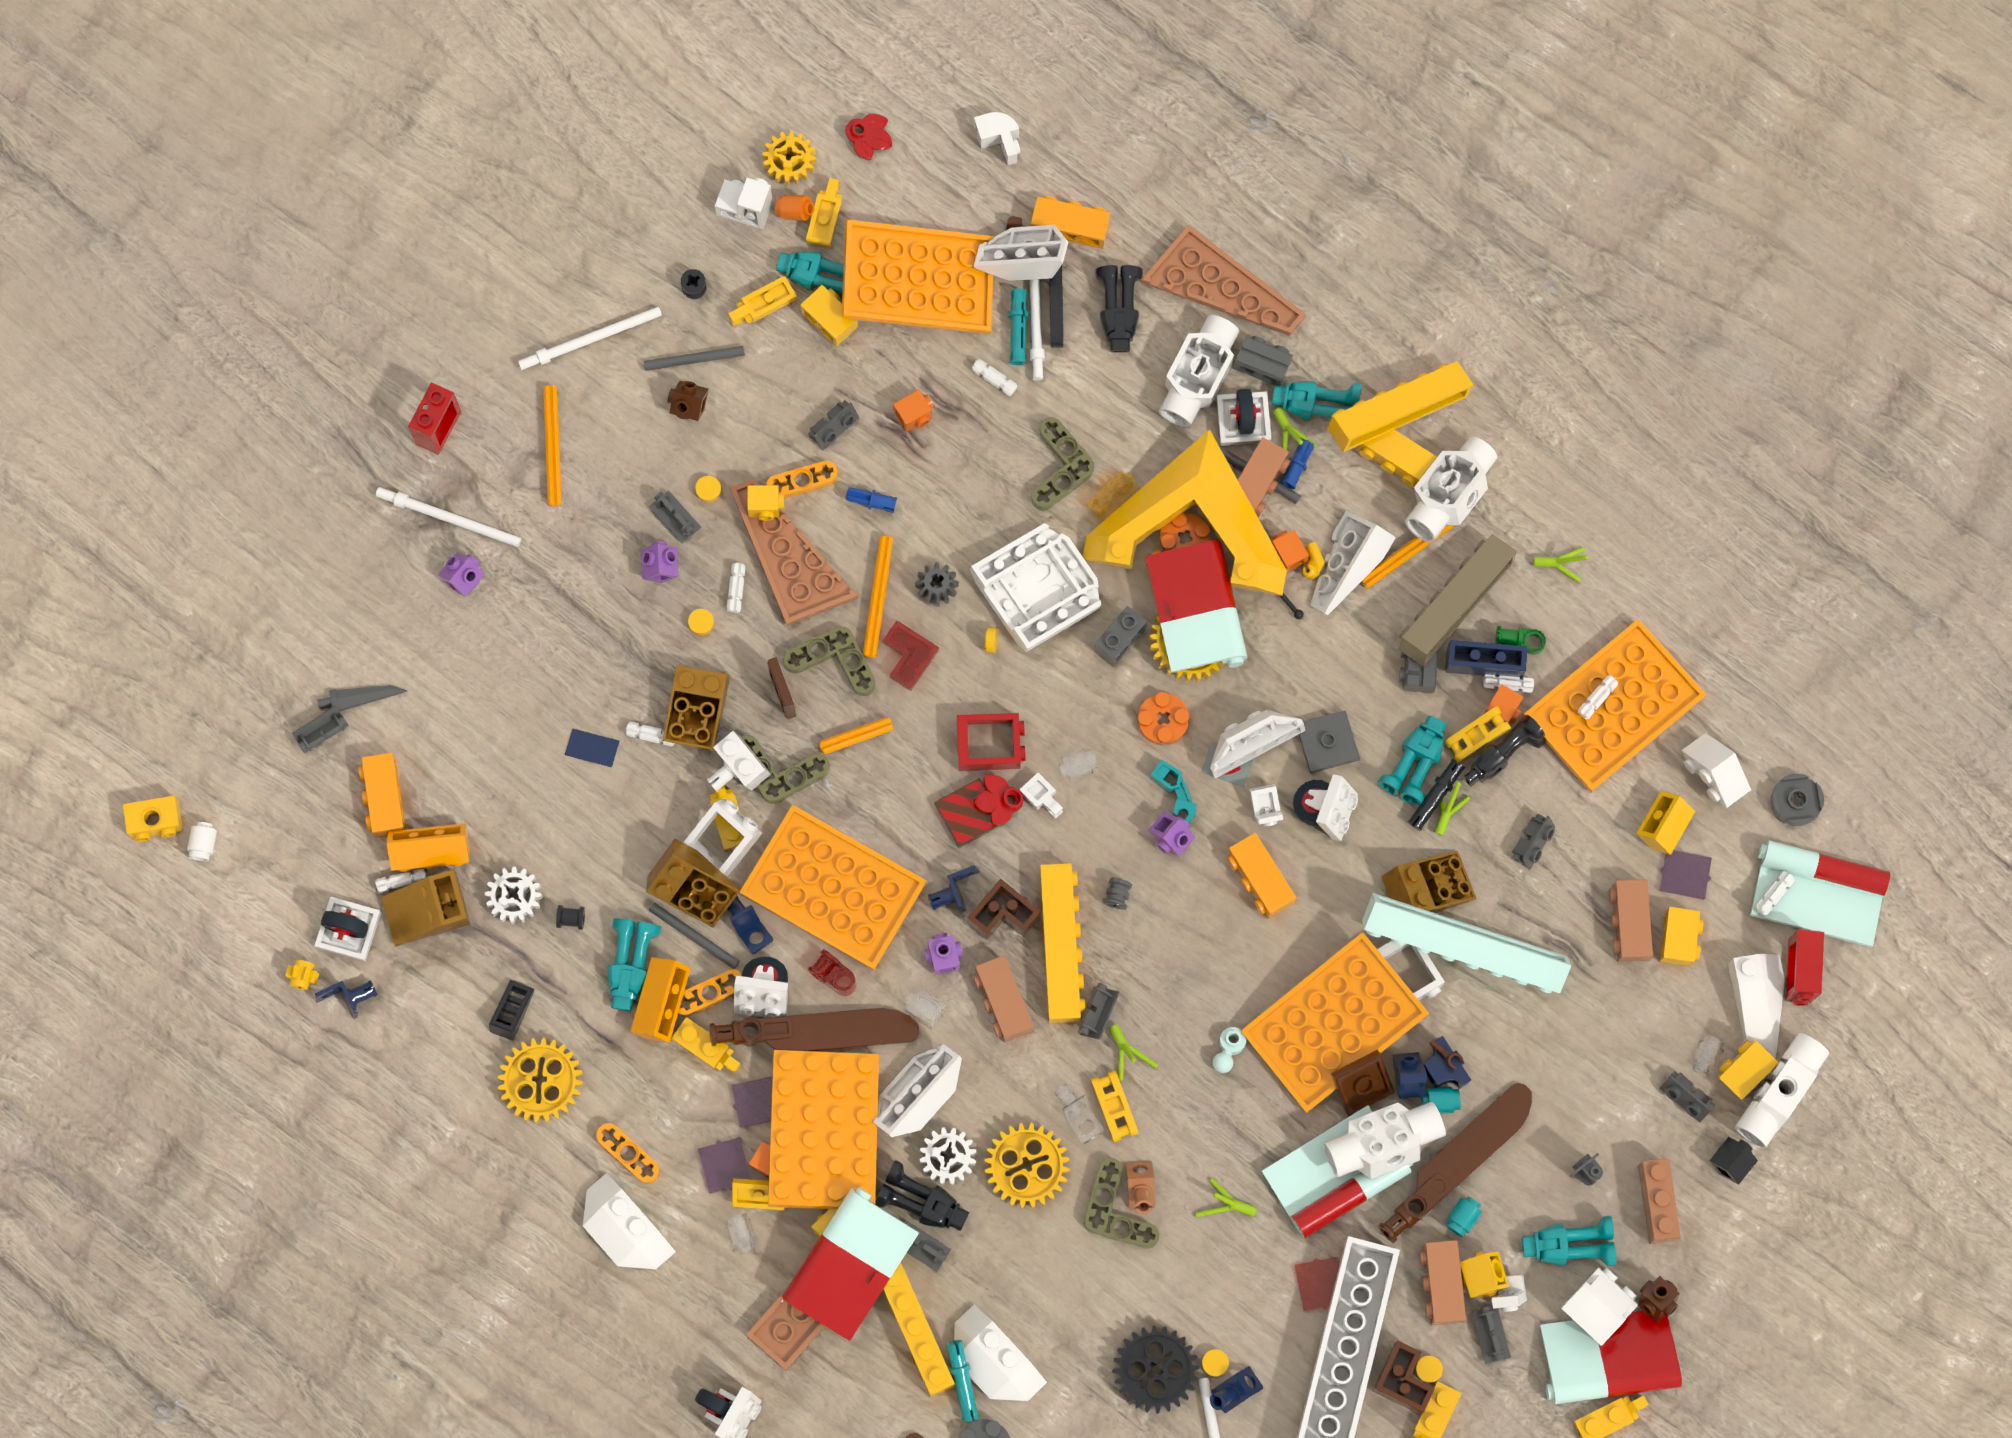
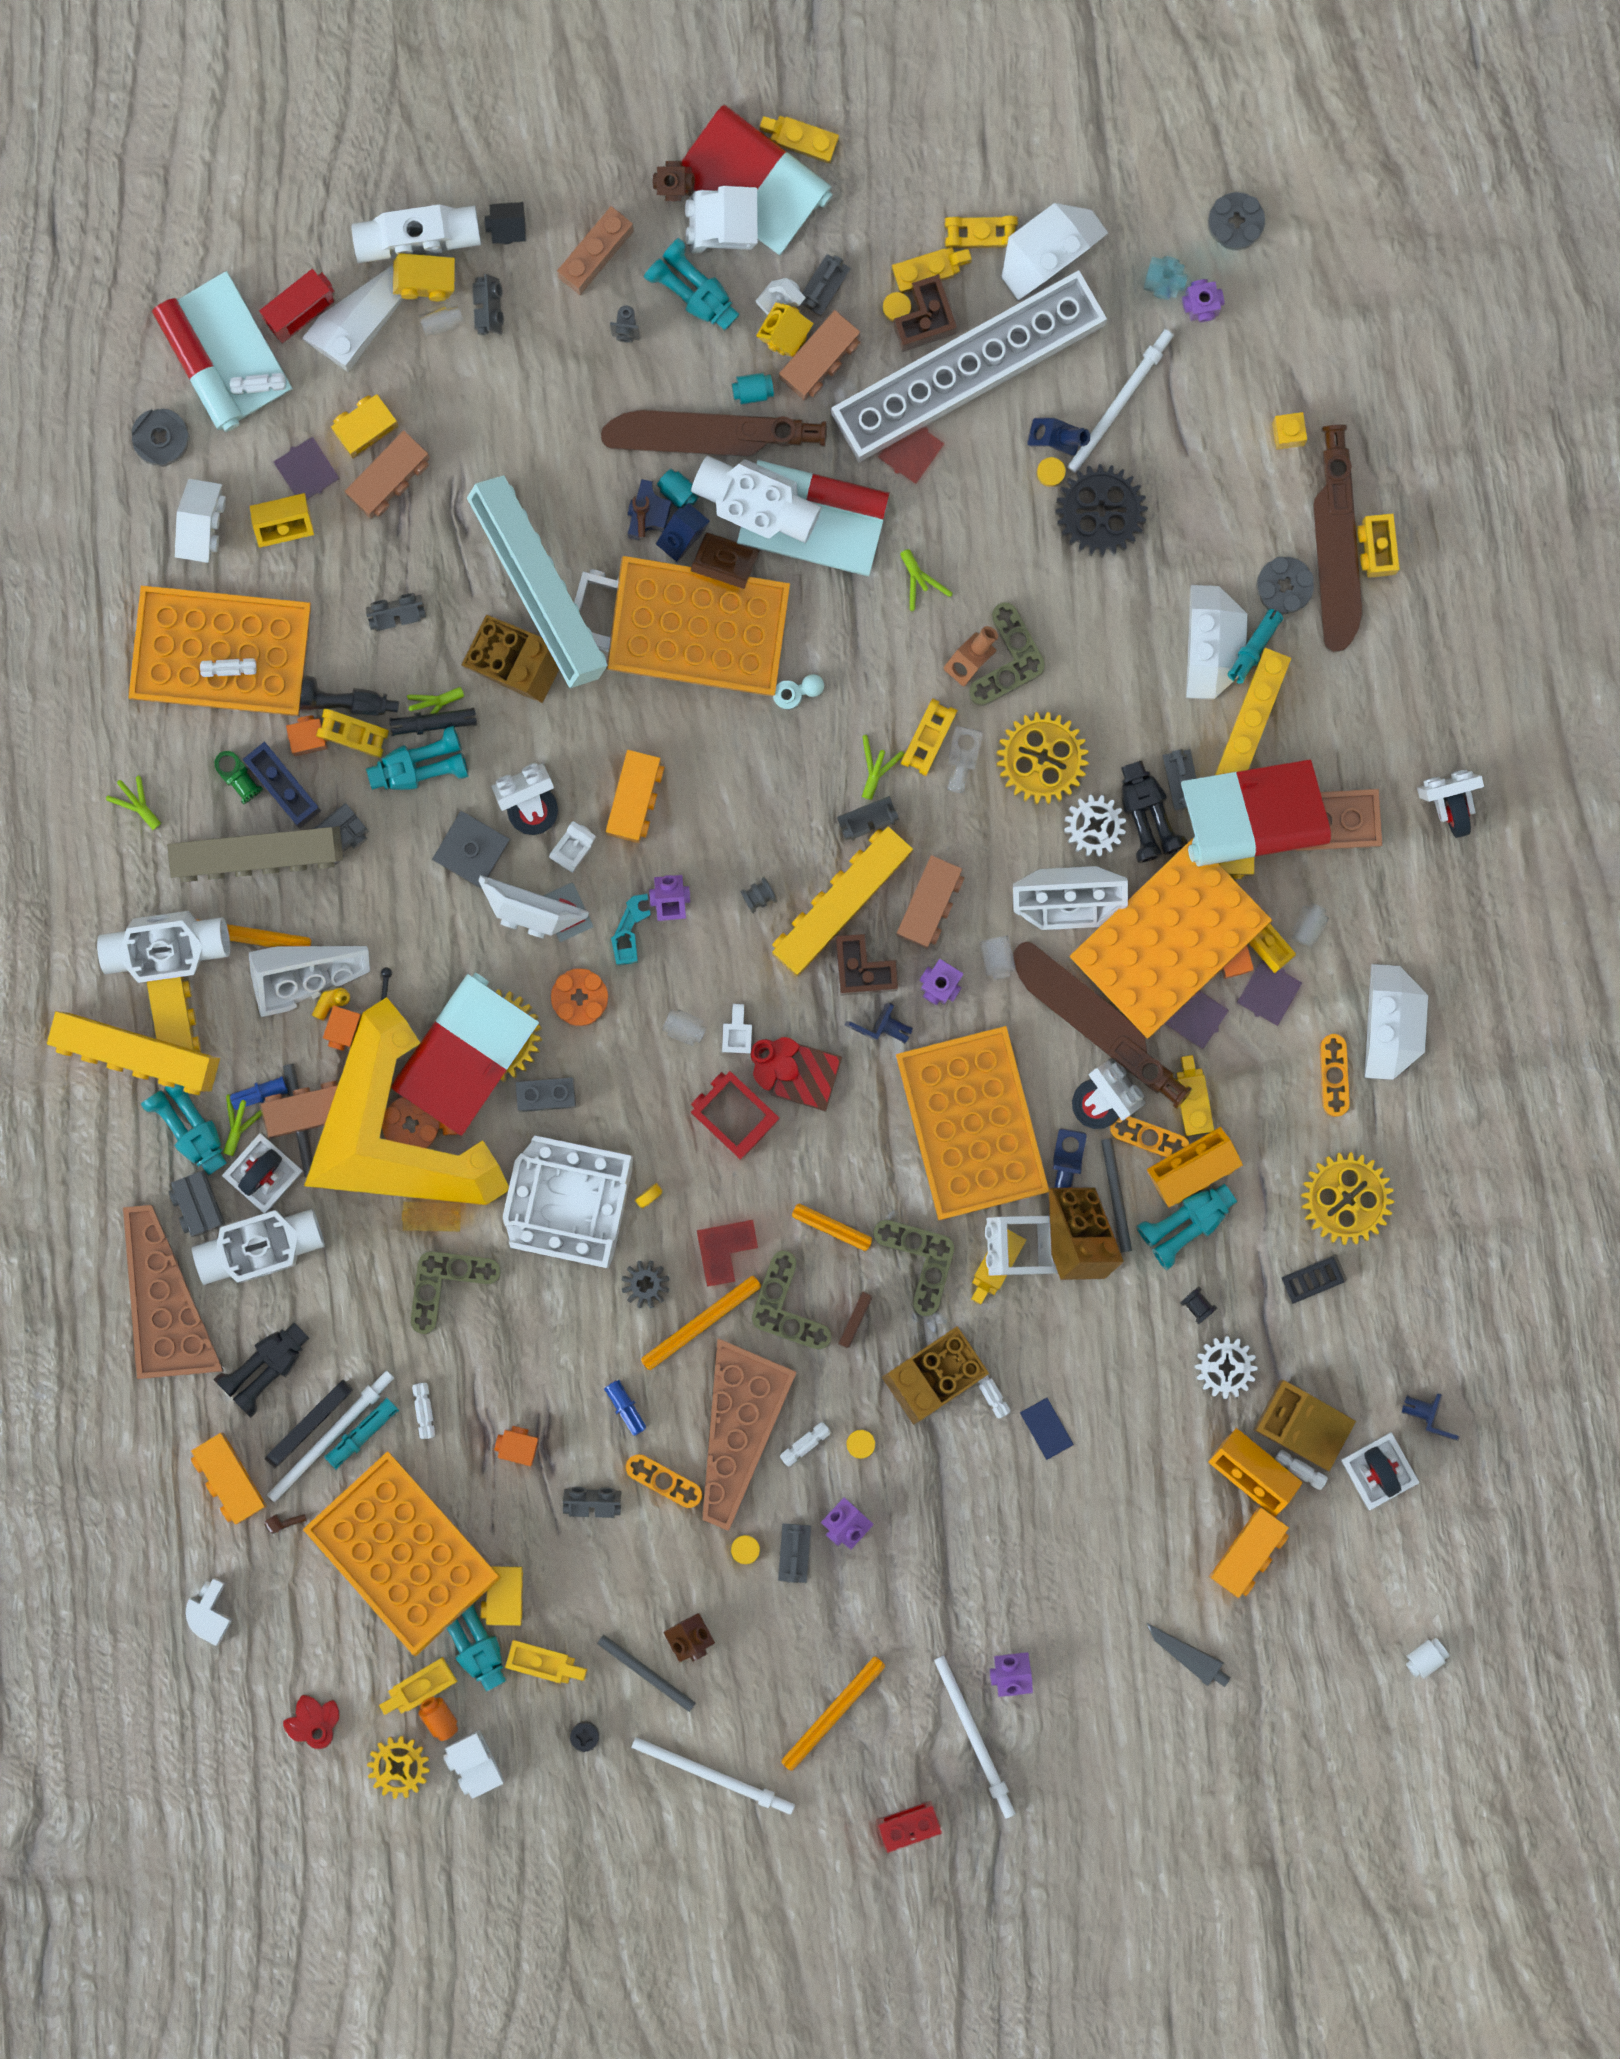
camera: 135 degrees left, 10 degrees up
(138, 813) = (1430, 1711): yellow brick -> none
(302, 974) = (1451, 1468): yellow gear -> none
(320, 729) = (1238, 1656): dark grey hinge -> none
(738, 762) = (948, 1292): white brick -> none
(764, 501) = (715, 1486): yellow brick -> none
(830, 970) = (1040, 1057): clear red piece -> none
(1023, 253) = (296, 1486): white wedge -> none
(1514, 683) = (282, 751): white axle -> none

